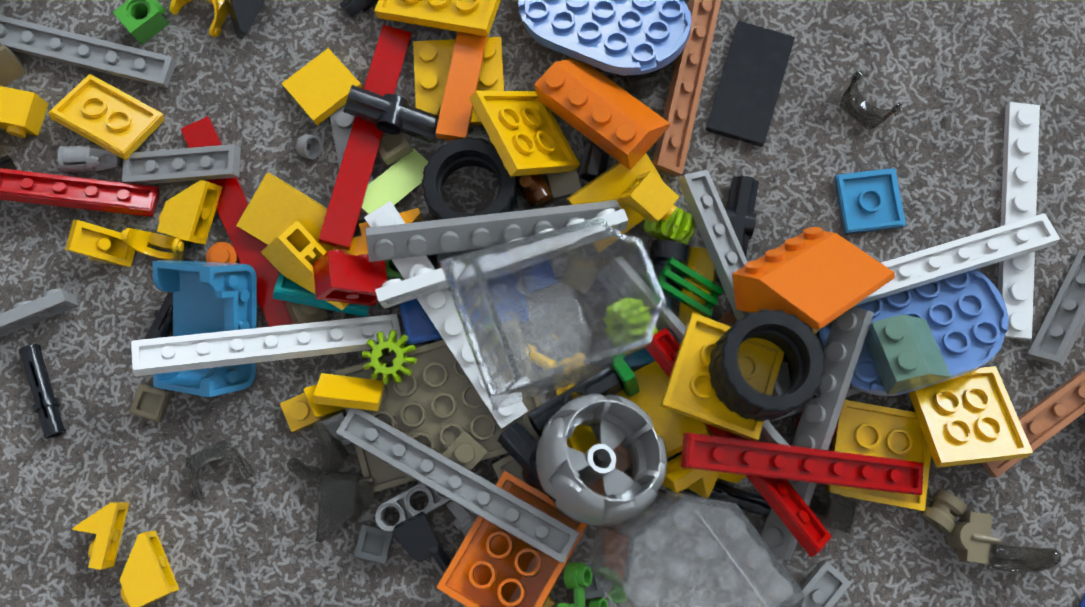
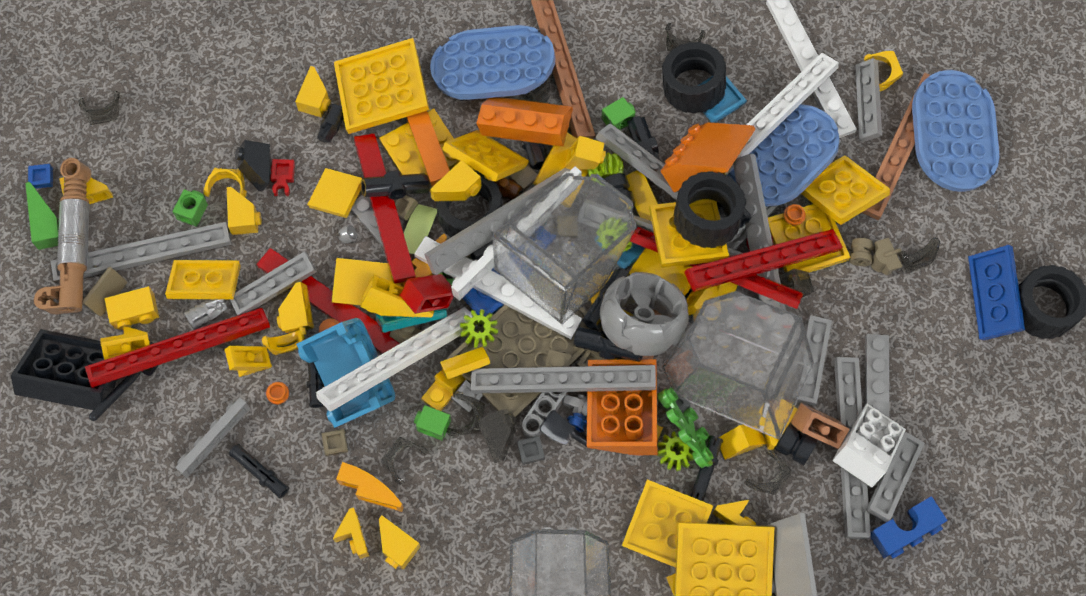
camera: 30 degrees left, 10 degrees down
(117, 304) = (277, 393): none -> orange plate
(154, 484) = (368, 487): none -> light orange slope
(195, 55) = (241, 214): none -> yellow slope
(272, 29) = (282, 173): none -> red plate
(274, 443) = (432, 422): none -> bright green brick
(451, 538) = (578, 421): none -> blue plate
(460, 155) = (457, 184): none -> yellow slope
(627, 377) = (629, 265): green tile -> none
(711, 300) = (640, 192): green tile -> none
(727, 160) = (618, 113): none -> bright green brick
(750, 84) = (605, 63): black tile -> none
(863, 131) = (689, 57): none -> black tyre
(881, 416) = (794, 215): none -> orange plate
(905, 353) = (785, 169): sand green slope -> none

